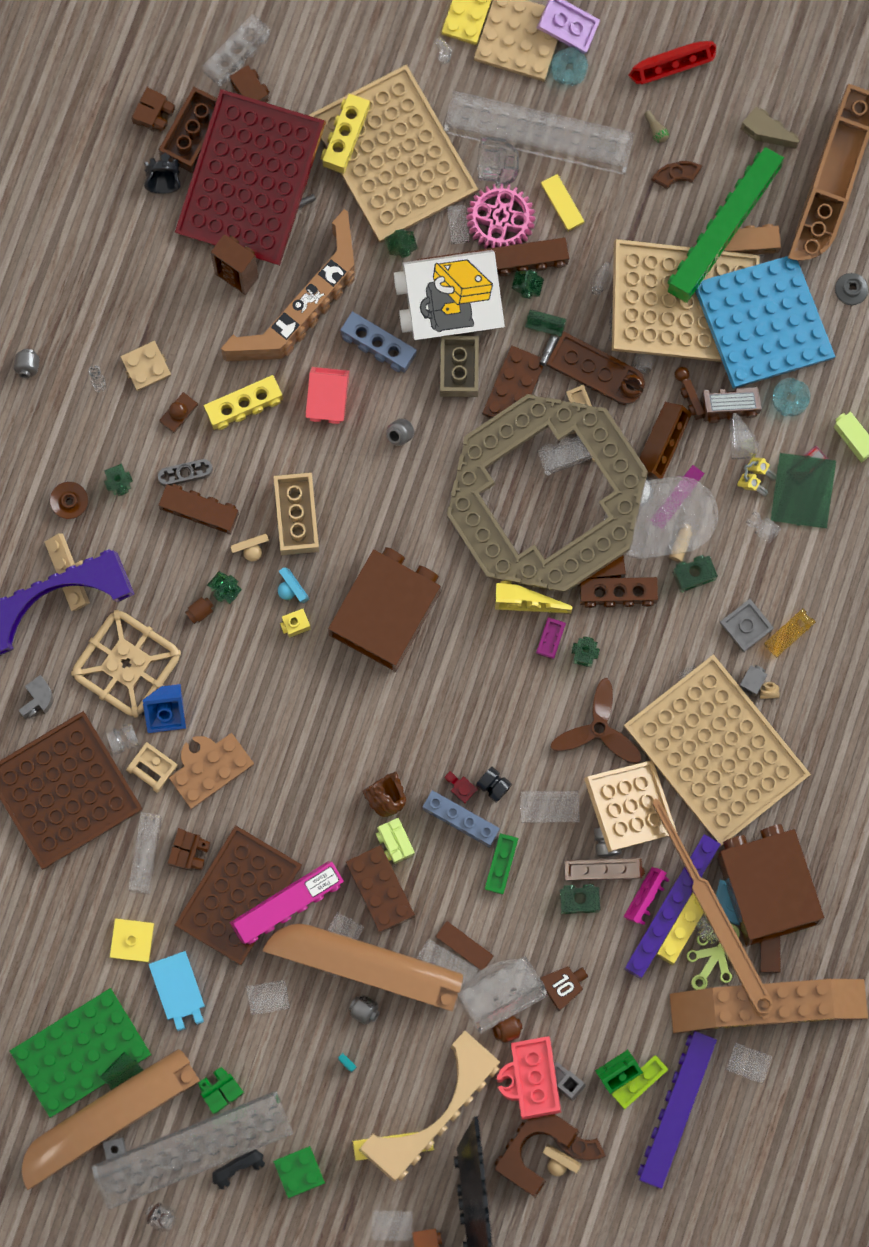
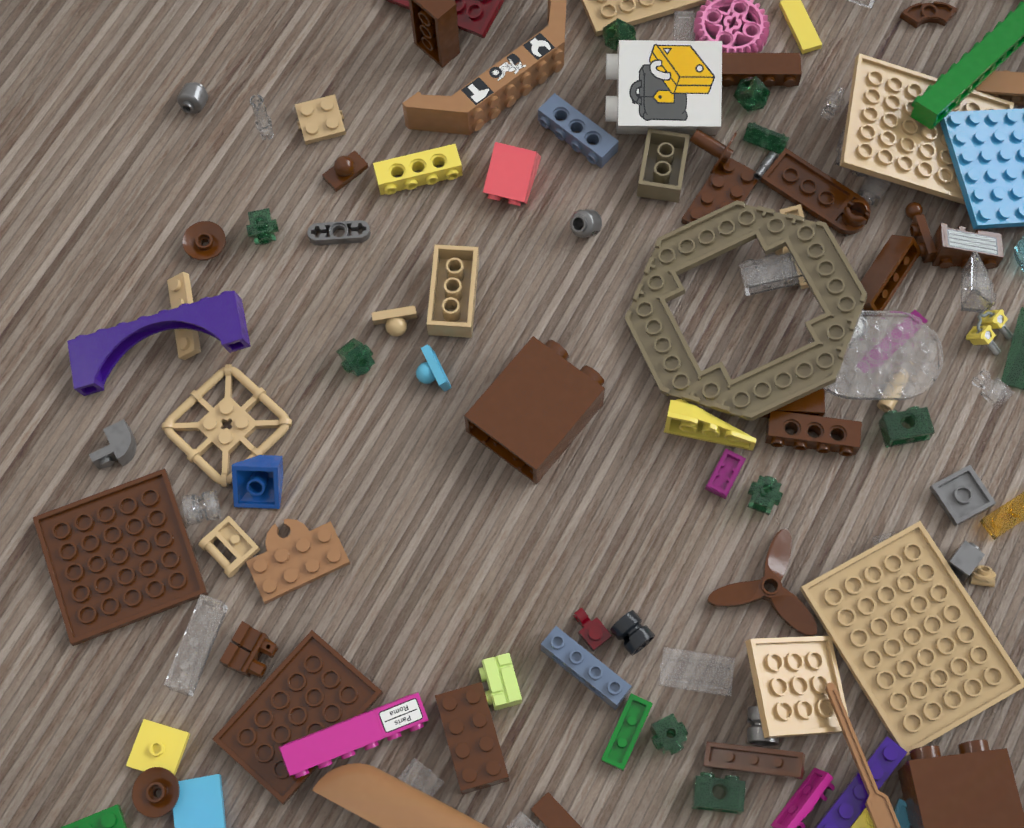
camera: 15 degrees right, 10 degrees down
(129, 973) = (145, 791): none -> reddish brown dish
(199, 509) = (345, 271): reddish brown brick -> none
(199, 610) = (323, 378): reddish brown brick -> none
(295, 623) = (429, 410): light yellow brick -> none
(386, 795) = (499, 624): reddish brown hair -> none
(509, 347) = (713, 146): none -> reddish brown piece
(534, 854) = (670, 726): none -> clear green brick

